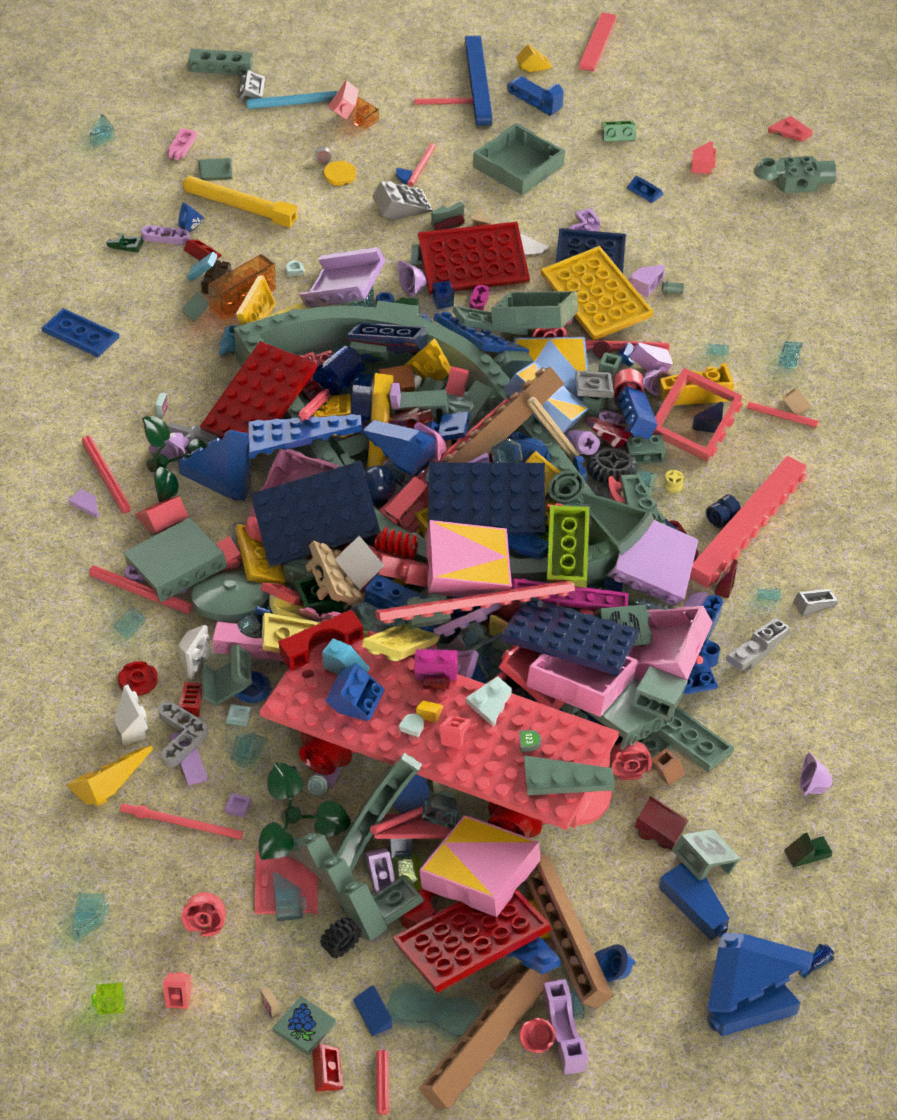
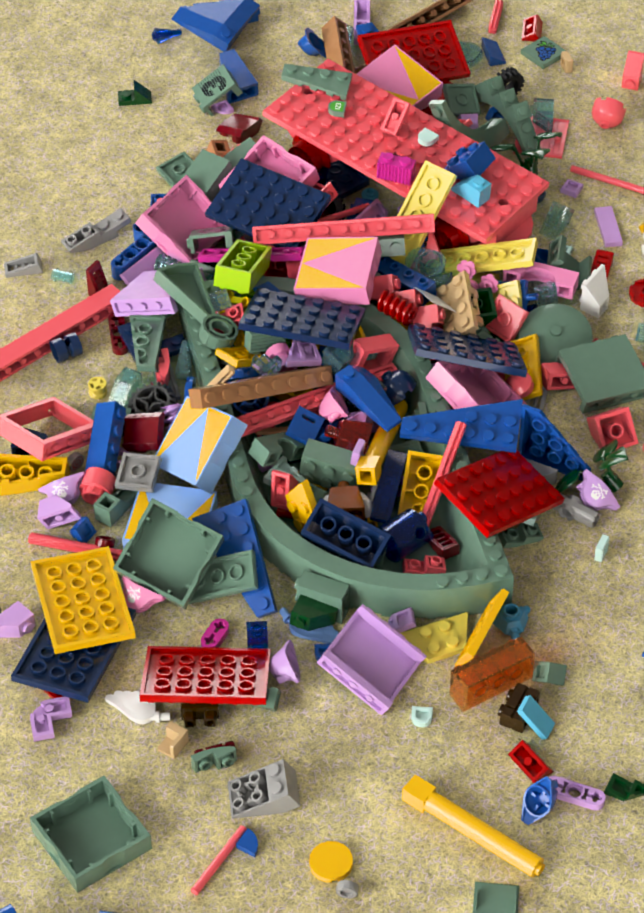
camera: 165 degrees left, 0 degrees up
(187, 733) = (602, 235): light grey beam -> none
(297, 648) = (468, 214): red arch -> none
(429, 710) = (411, 143): yellow slope -> none
(490, 700) = (358, 143): light aqua wing -> none
(513, 361) = (212, 502): sand green slope -> none
(537, 1035) = (382, 20): coral hair -> none
(814, 776) = (105, 133): lavender hat -> none

